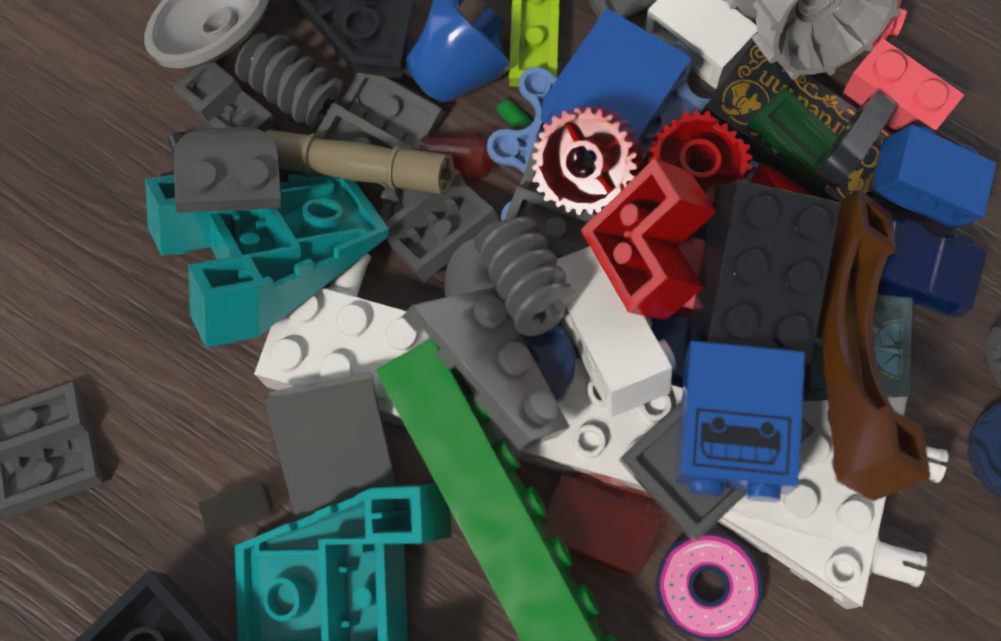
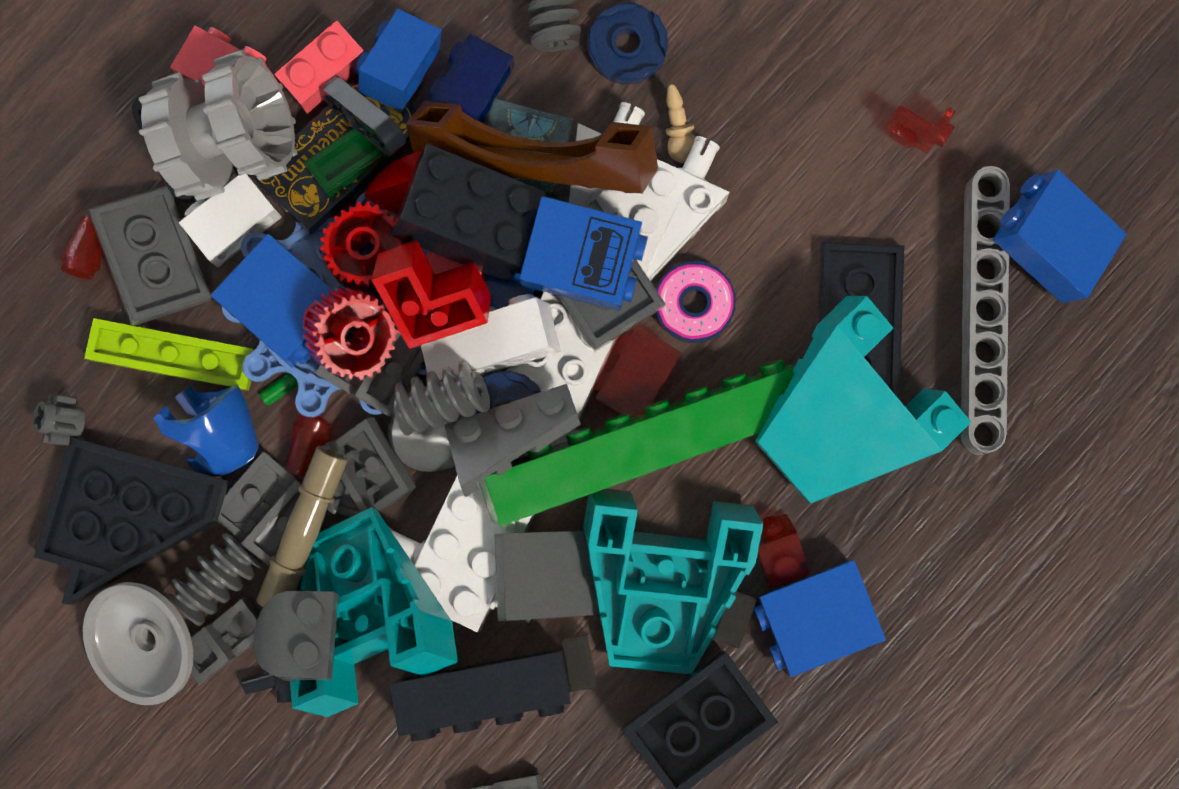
camera: 80 degrees left, 10 degrees up
(182, 394) = (480, 693): none -> black brick
(923, 535) = (680, 134): none -> tan bar

